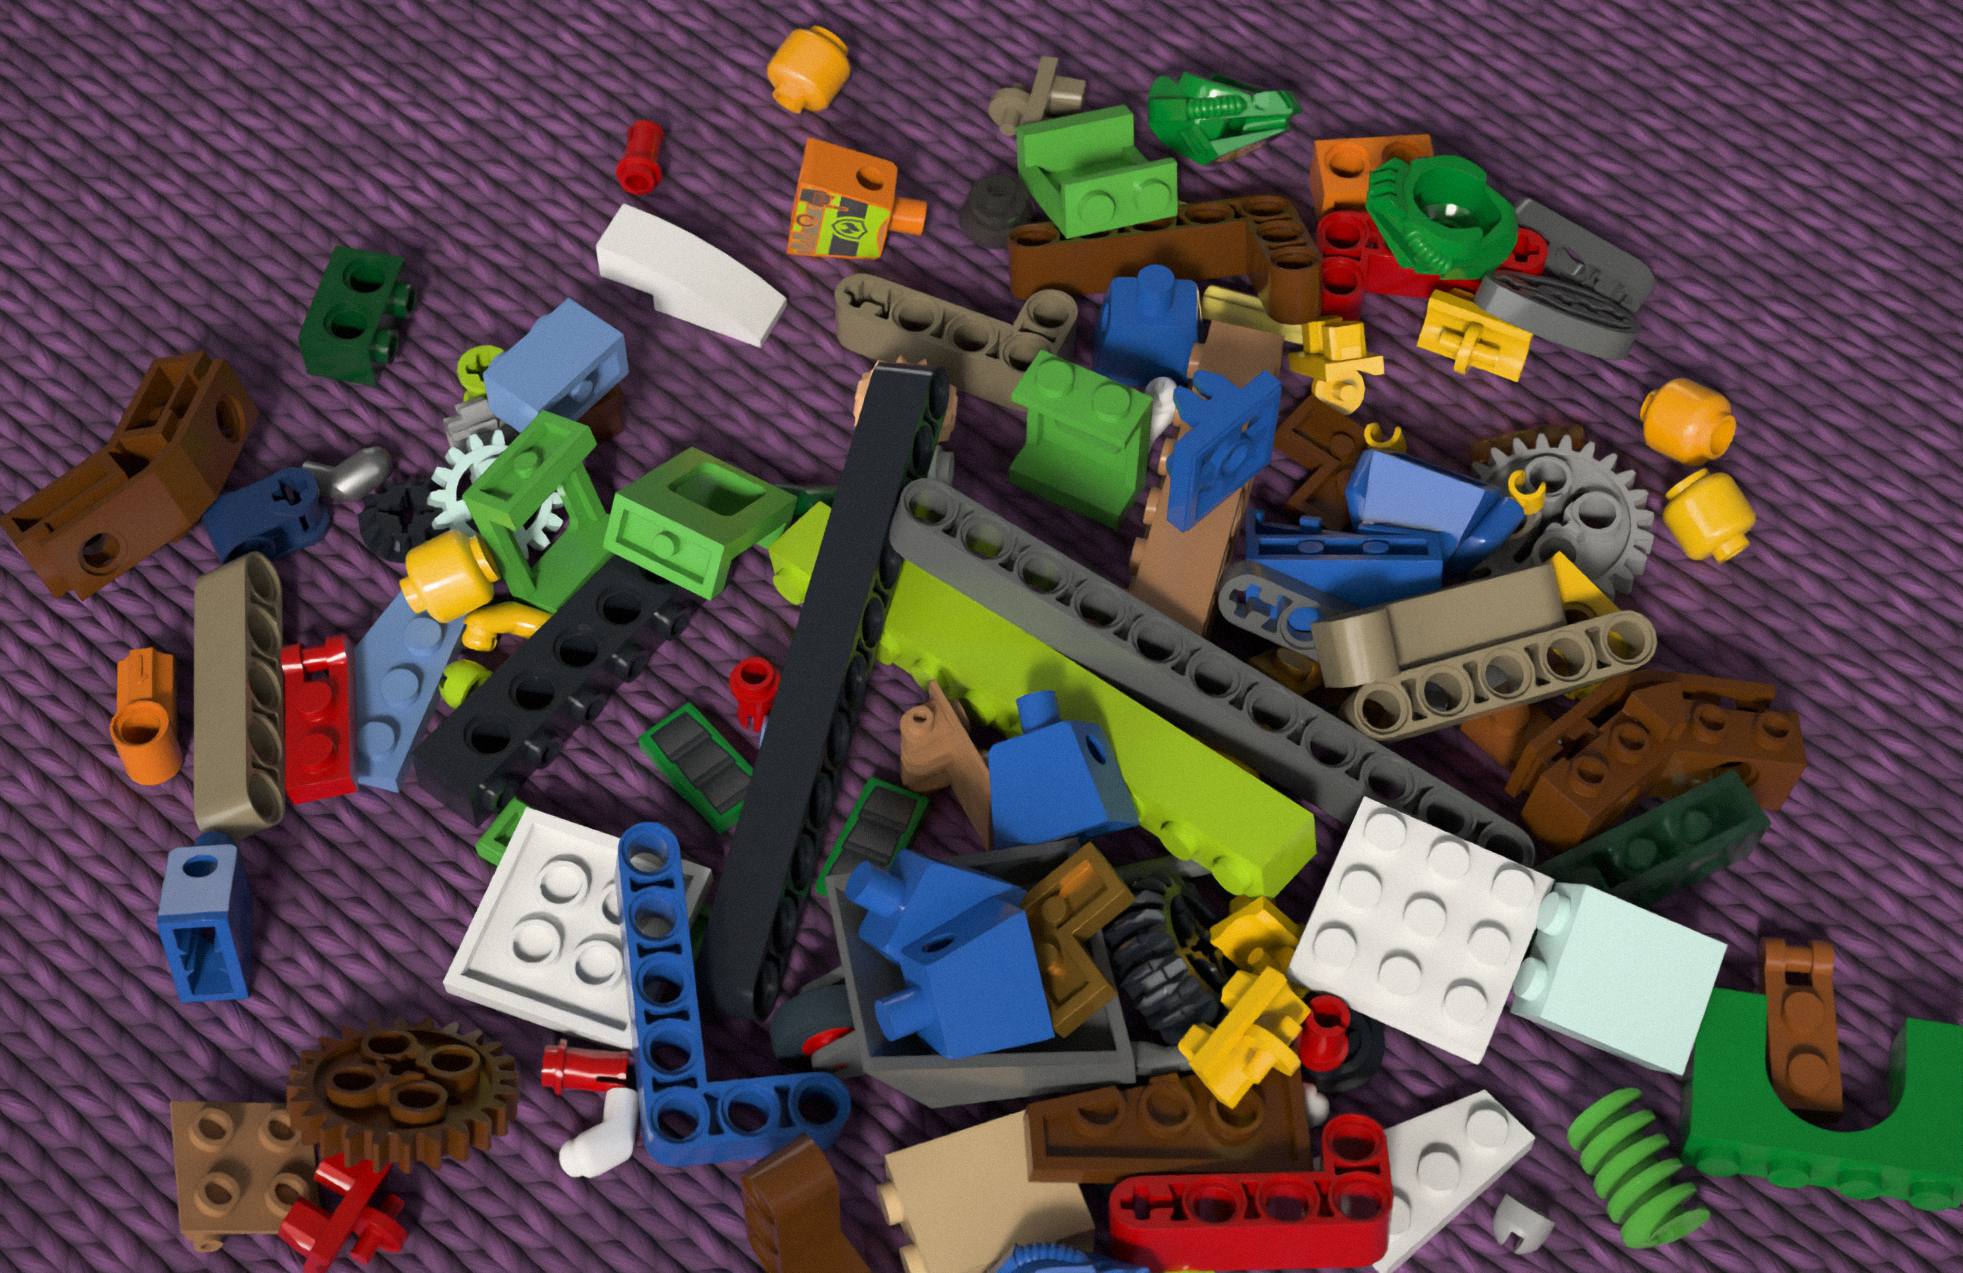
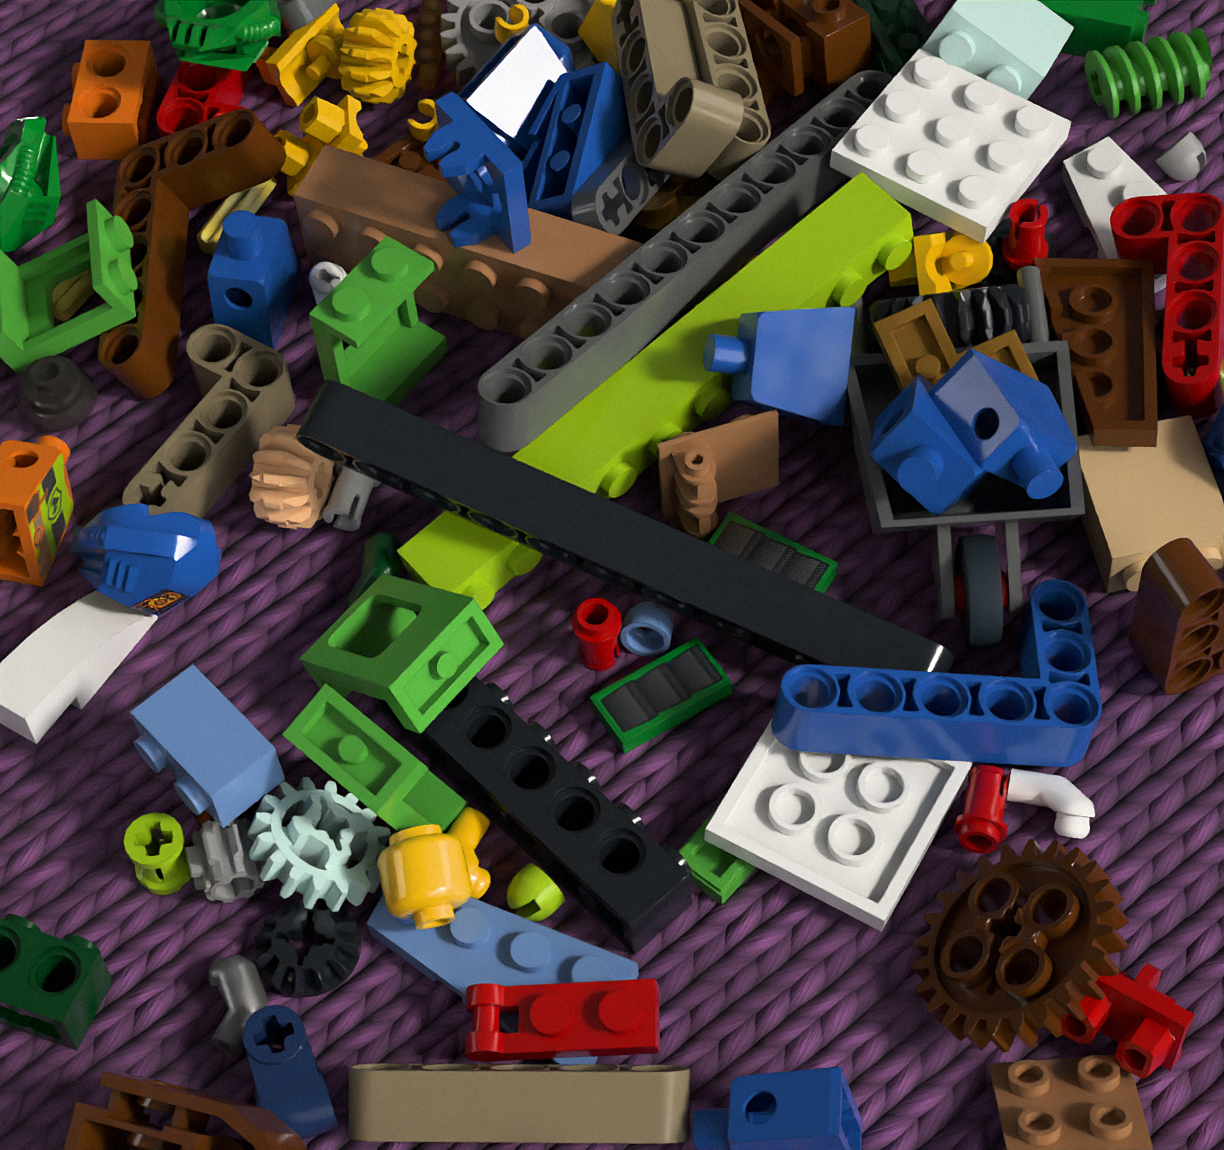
camera: 75 degrees left, 0 degrees up
(789, 306) = (147, 558): none -> blue helmet
(1250, 1039) = (1065, 284): yellow hips -> none
(1472, 387) = (377, 56): none -> yellow gear

